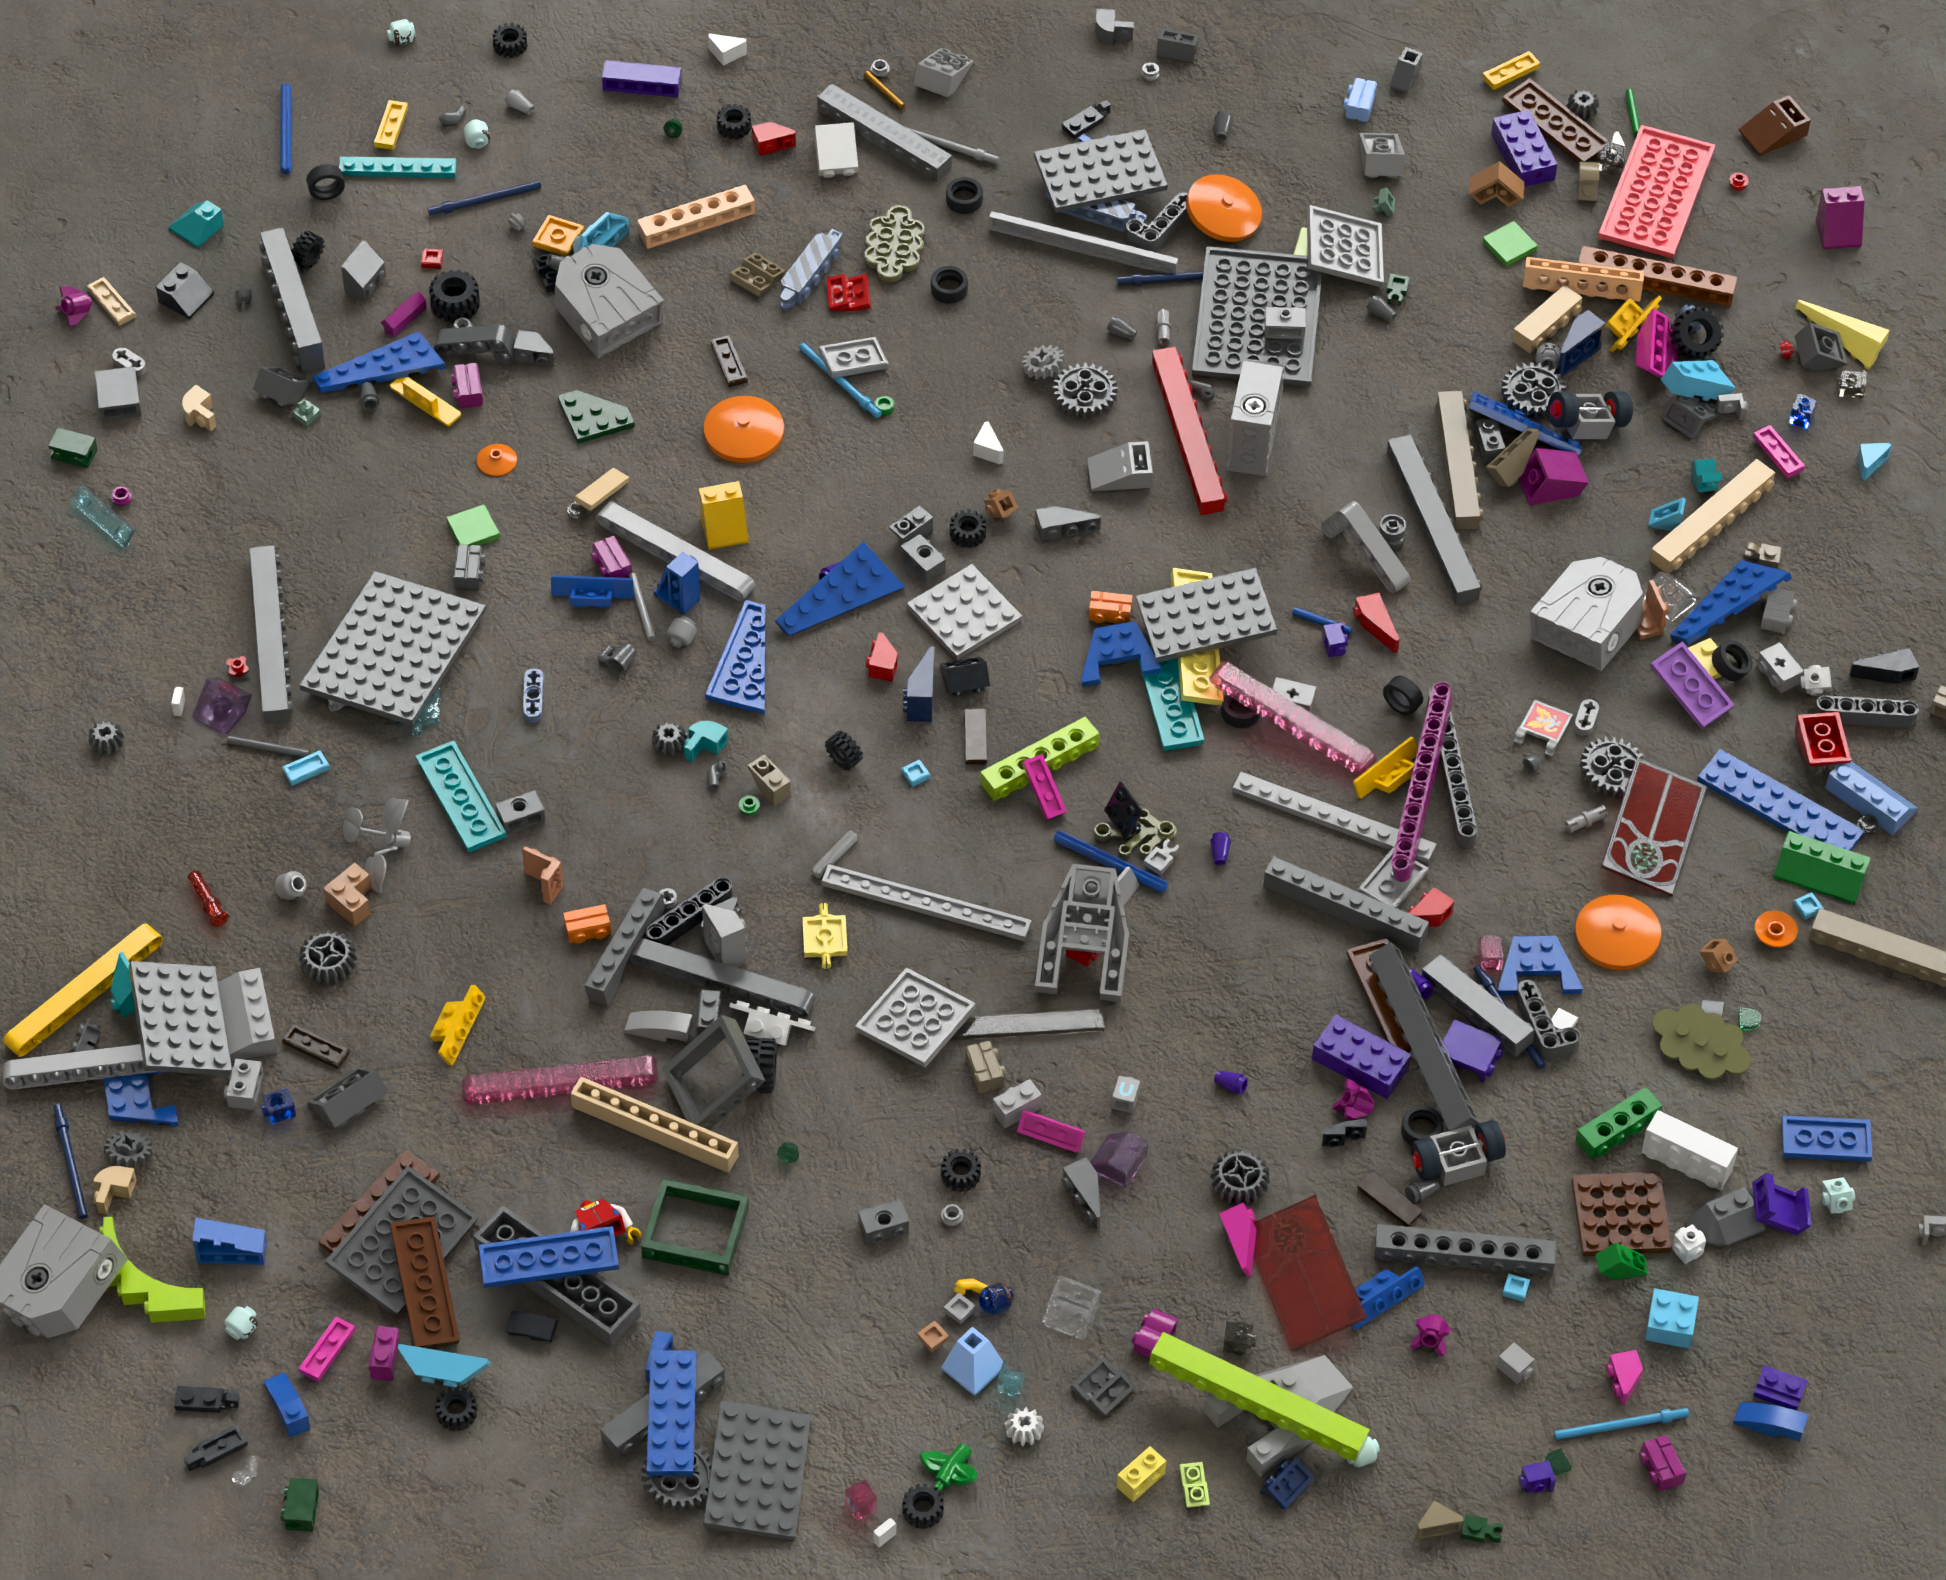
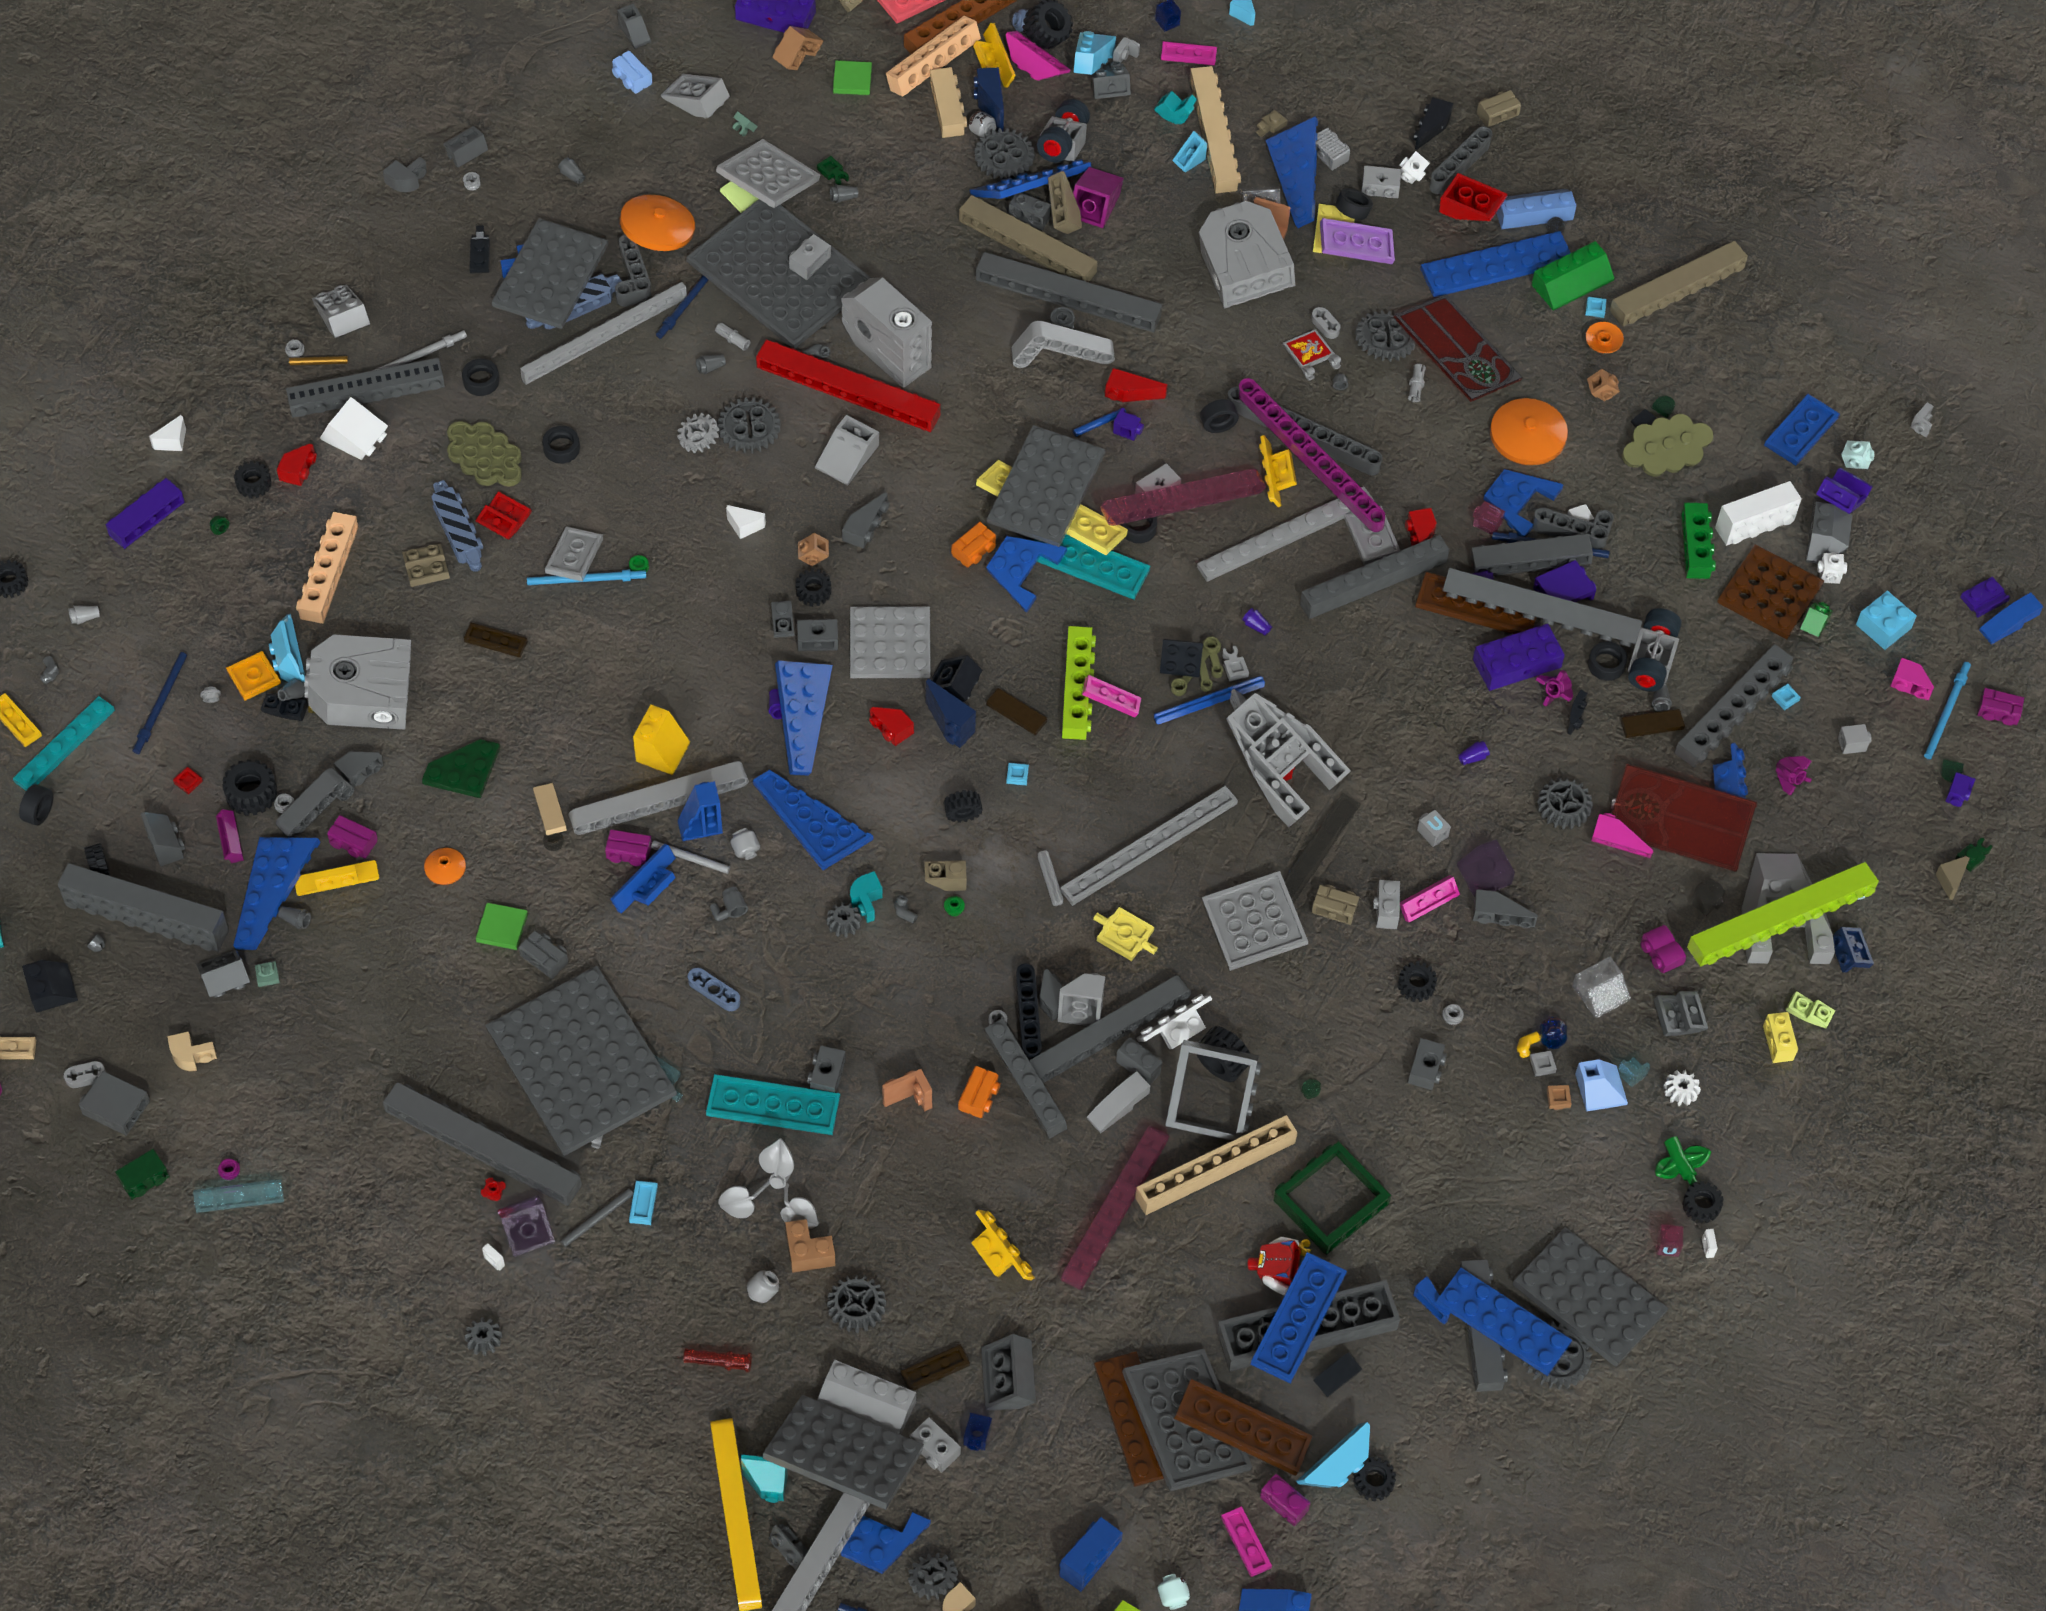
camera: 55 degrees left, 5 degrees up
(476, 133) = (87, 664): light aqua head -> none
(743, 429) = (574, 674): orange dish -> none

